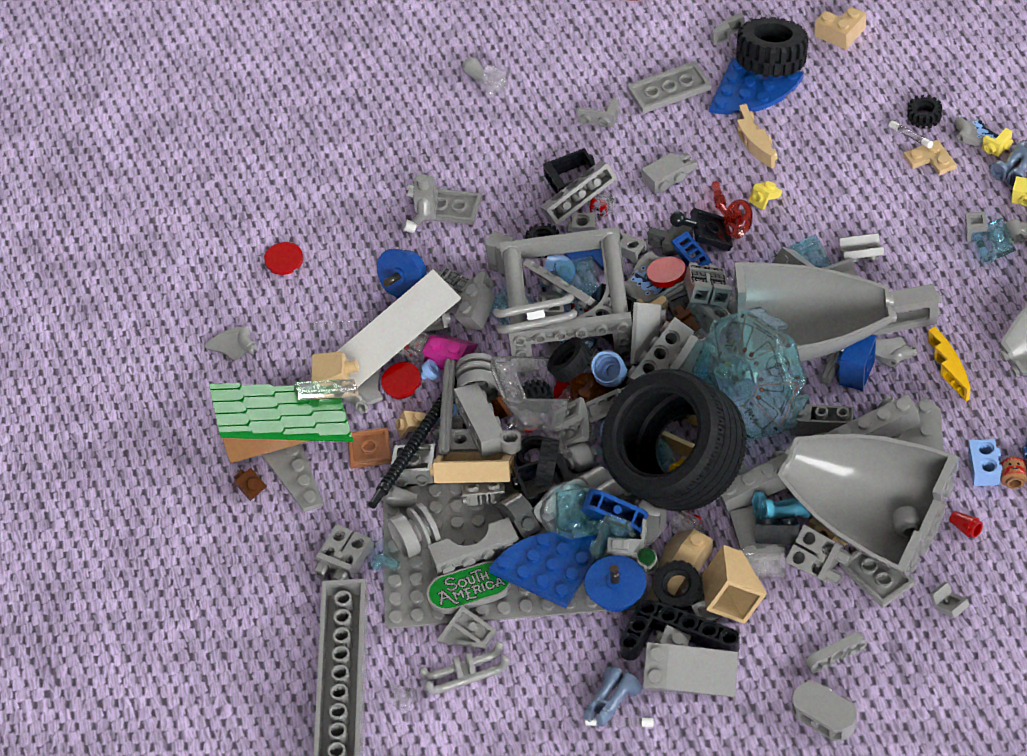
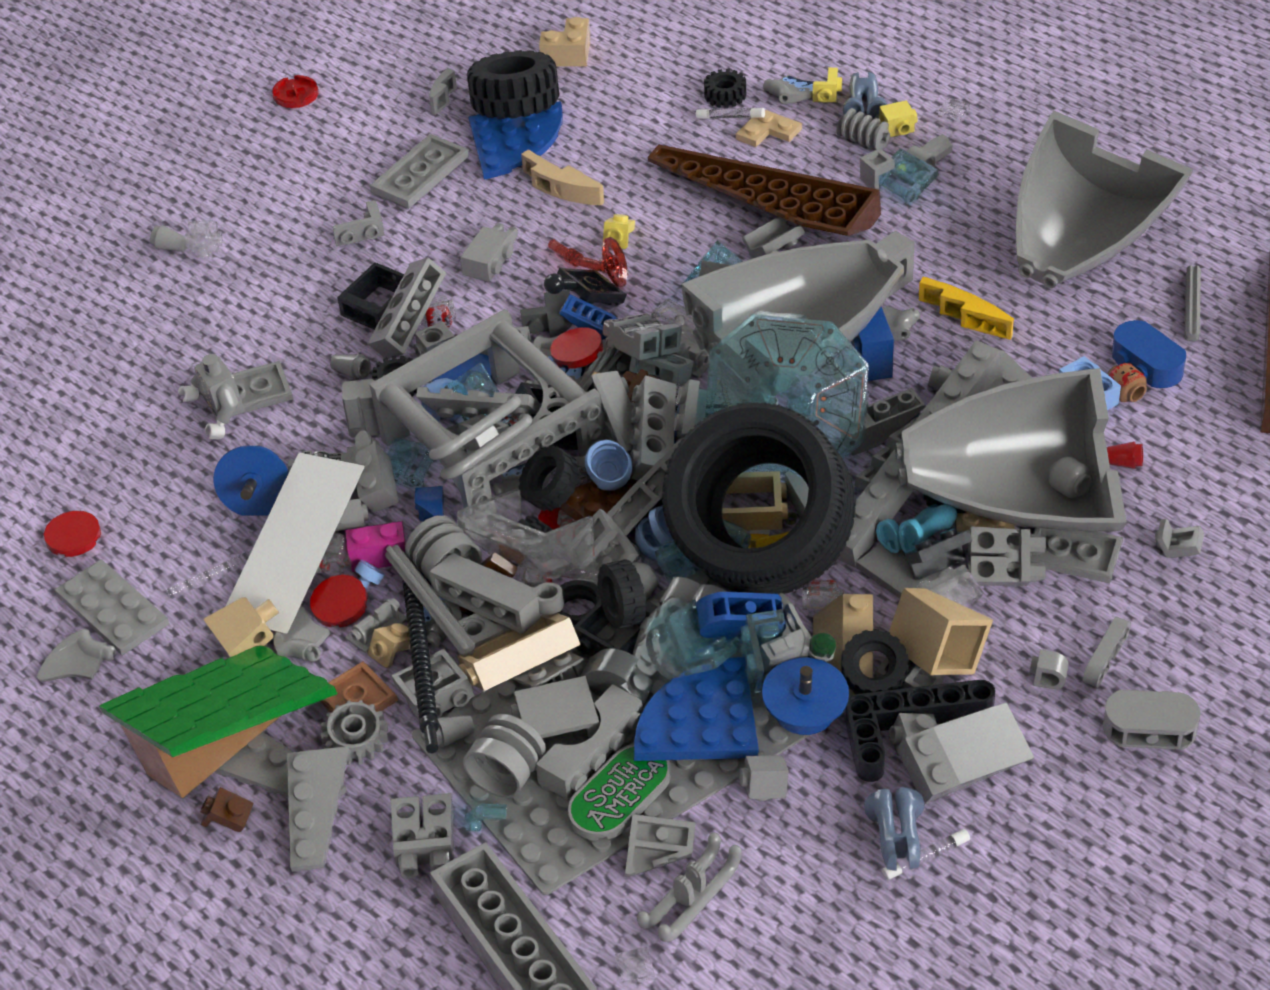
camera: 35 degrees left, 5 degrees down
(273, 319) = (111, 607): none -> light grey plate
(295, 503) = (313, 802): none -> light grey wing
(326, 389) = (253, 650): clear tile -> none
(342, 478) = (359, 717): none -> light grey gear
(417, 404) = (383, 616): none -> light grey hinge
(443, 326) = (353, 515): none -> light grey bracket
(466, 516) = (557, 707): none -> light grey panel
(498, 342) = (429, 502): none -> blue slope
(522, 217) = (351, 365): none -> light grey cone
(558, 623) = (764, 777): none -> light grey brick
(789, 644) = (1049, 669): none -> light grey plate
(892, 220) = (787, 194): none -> reddish brown wedge
(993, 190) = (863, 130): none -> light grey piece

